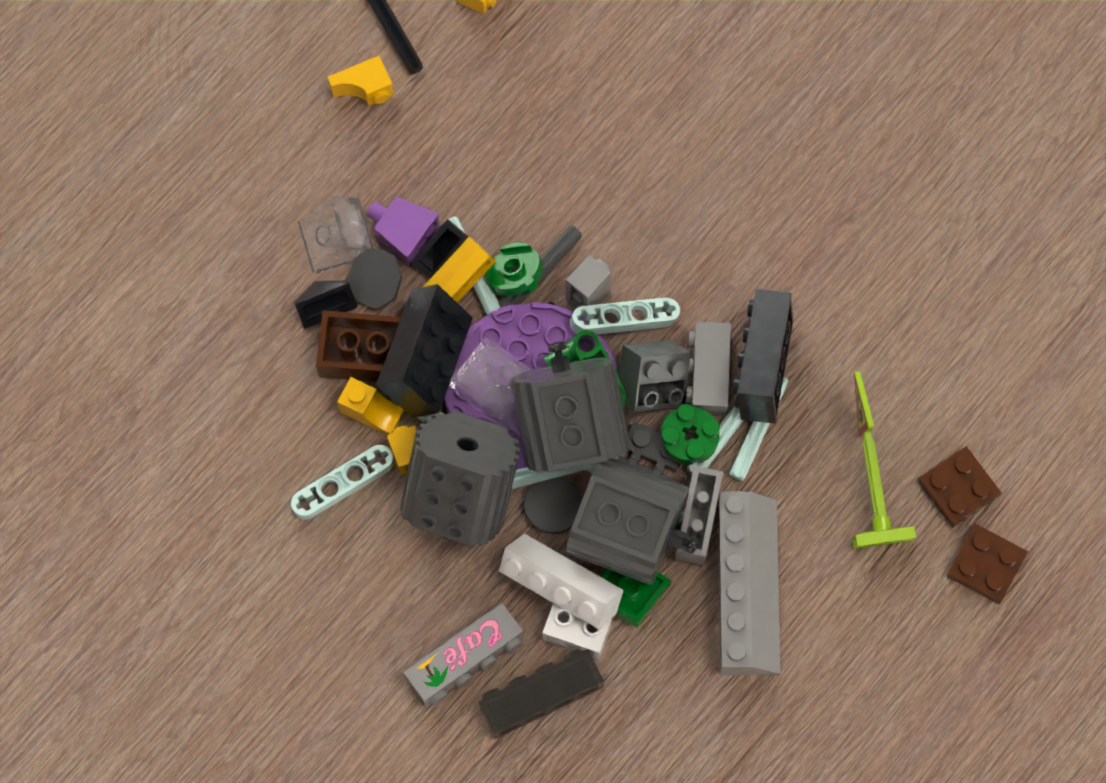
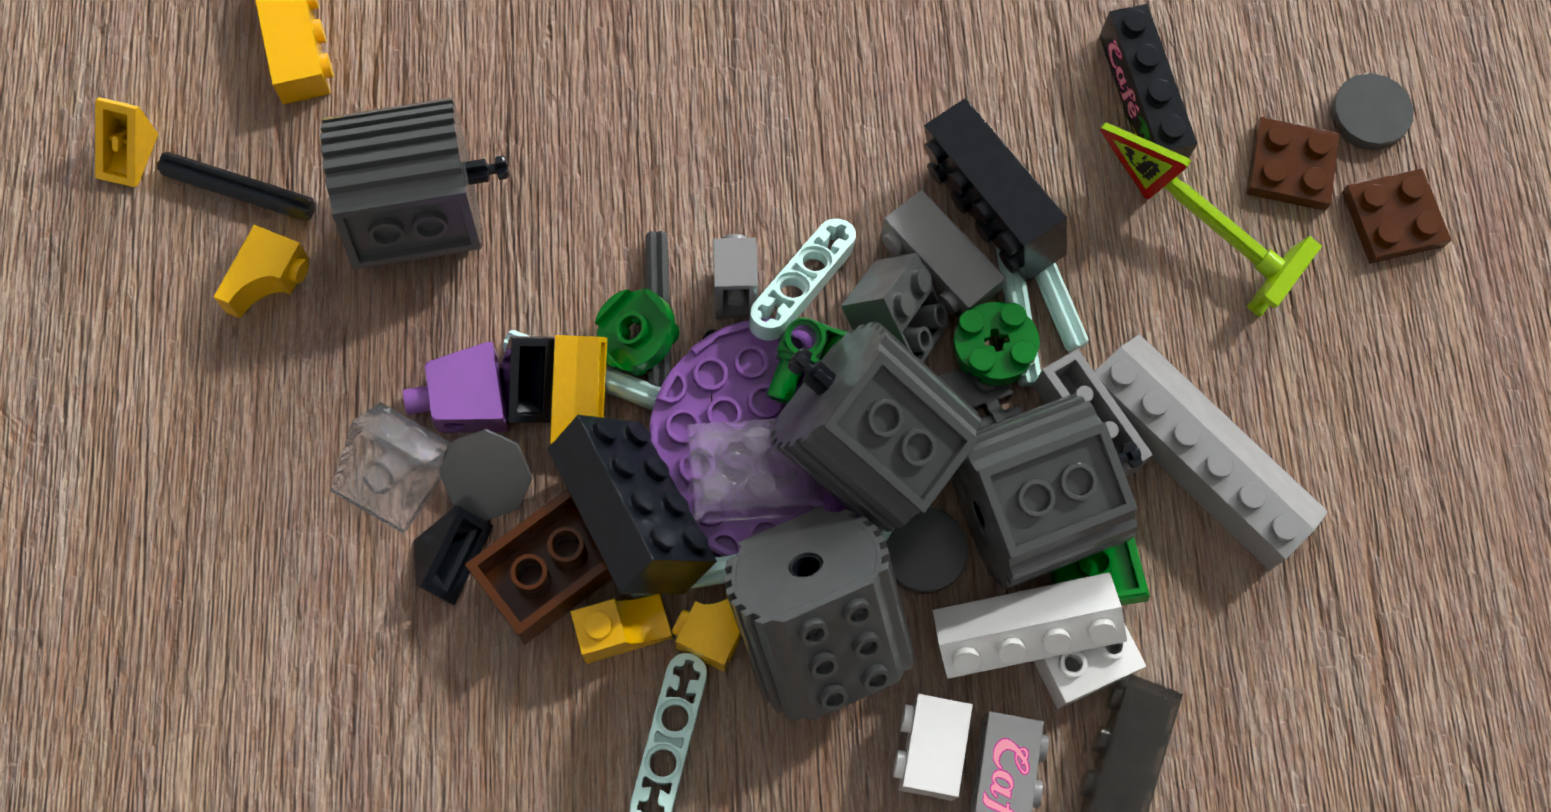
camera: 50 degrees left, 0 degrees up
(460, 596) = (933, 747): none -> white brick
(466, 97) = (403, 183): none -> dark grey piece
(915, 376) = (1146, 80): none -> black brick
(1036, 498) = (1372, 111): none -> dark grey tile

